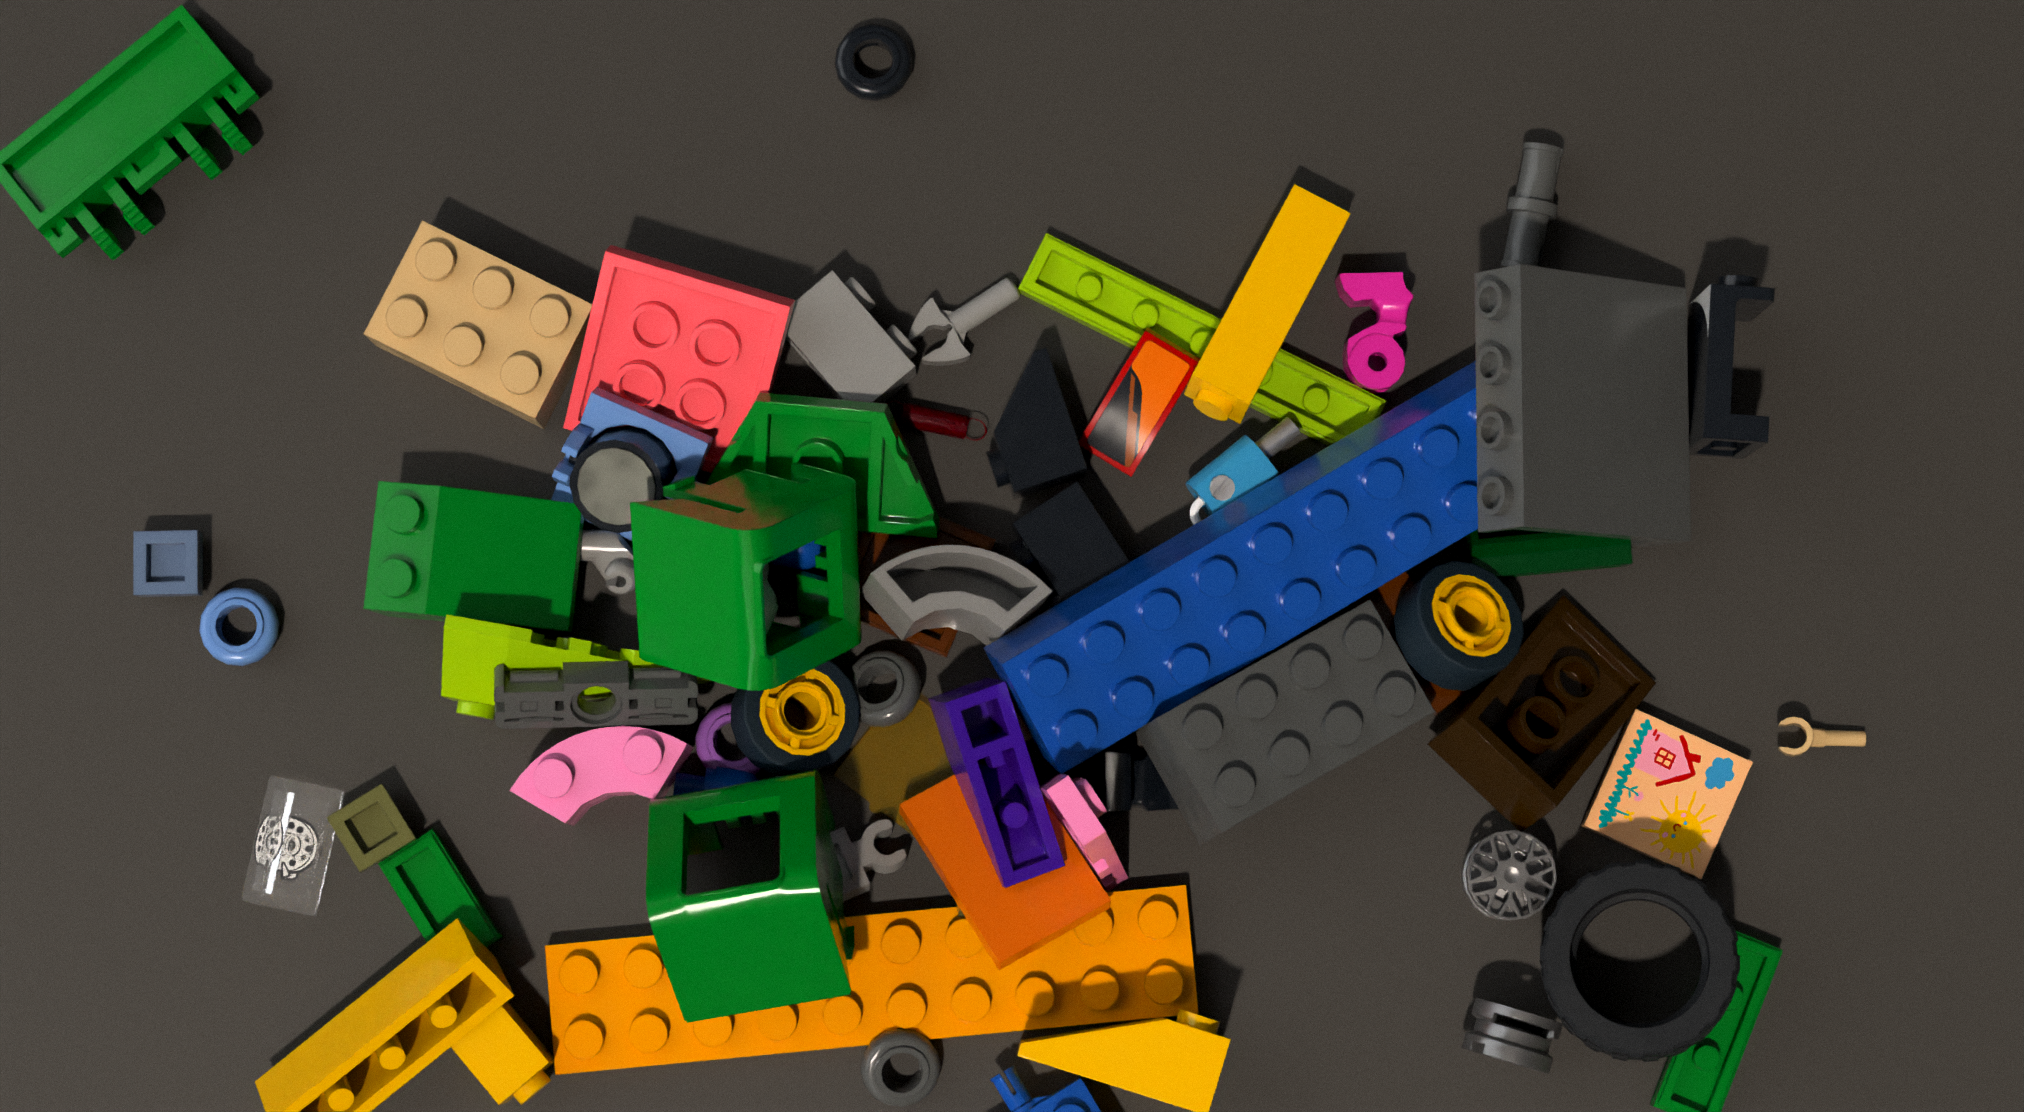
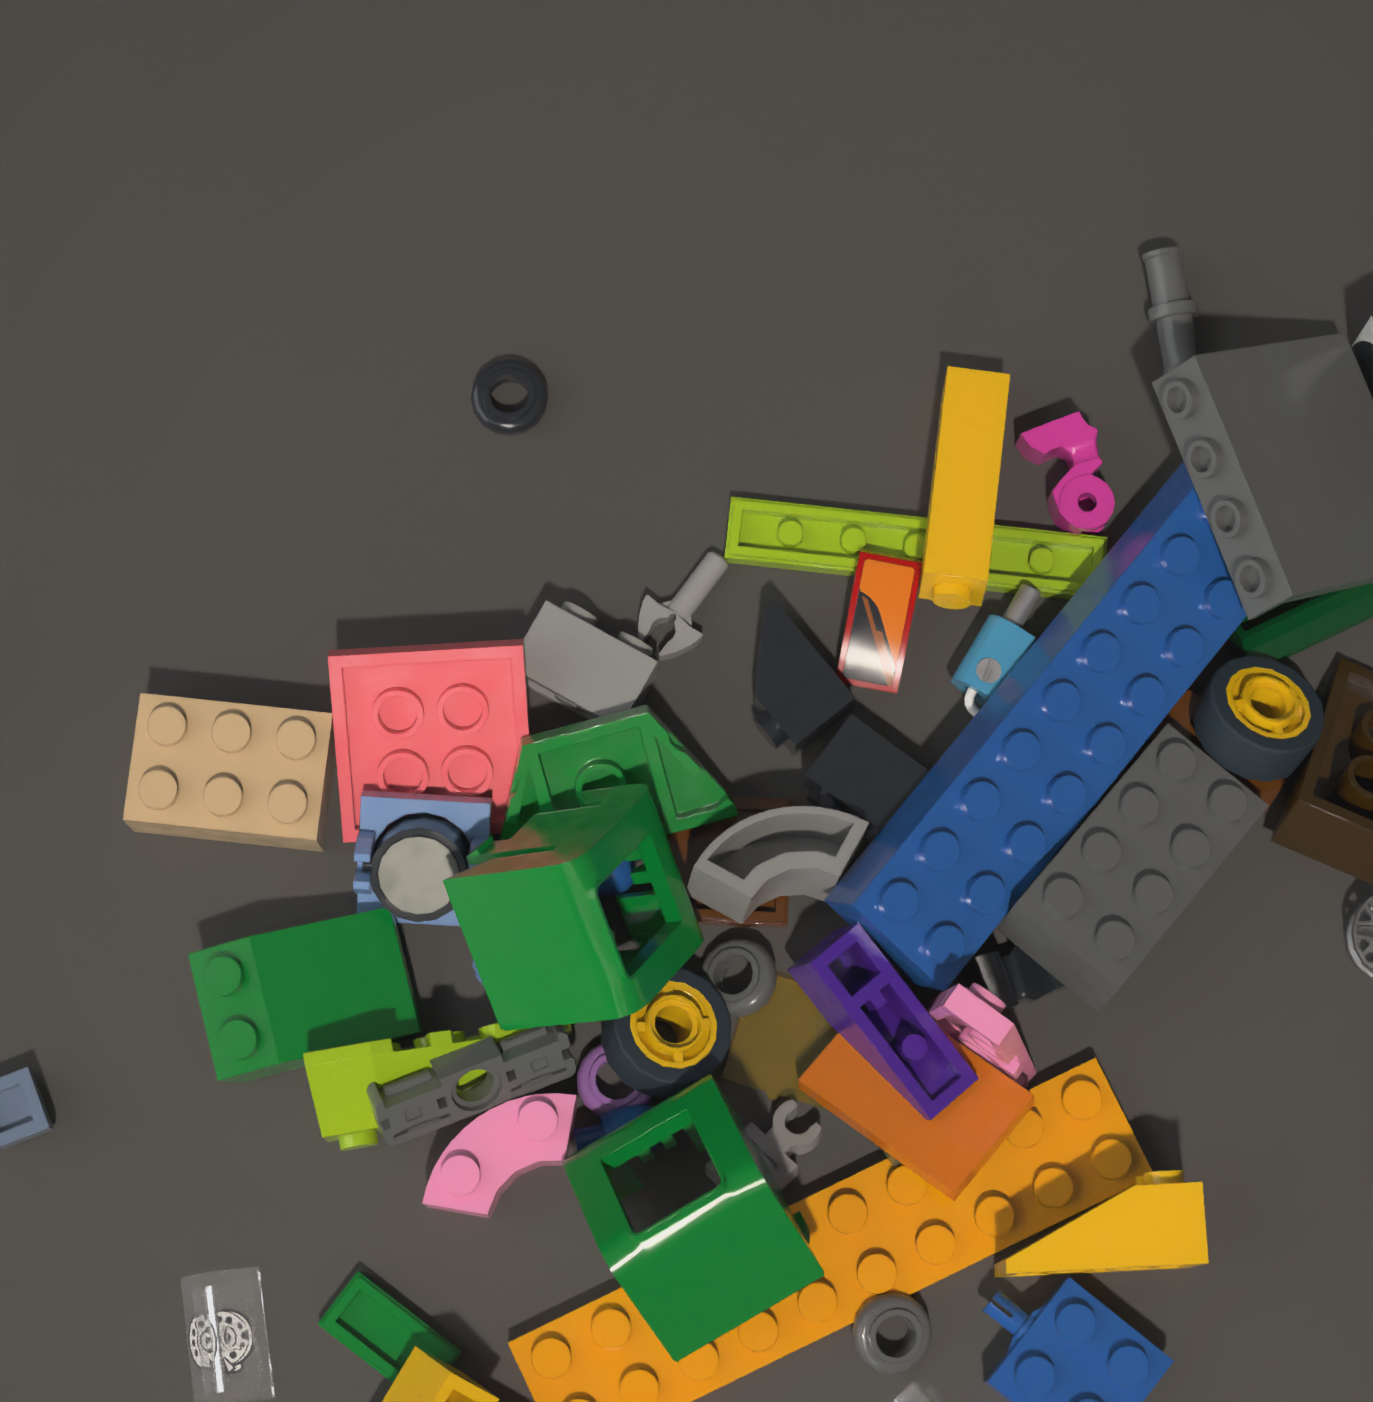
camera: 20 degrees left, 5 degrees down
(213, 618) = (73, 1137): medium blue piece -> none
(371, 828) = (299, 1291): olive plate -> none
(611, 557) = (436, 950): light grey arm -> none
(935, 421) = (693, 708): dark red piece -> none

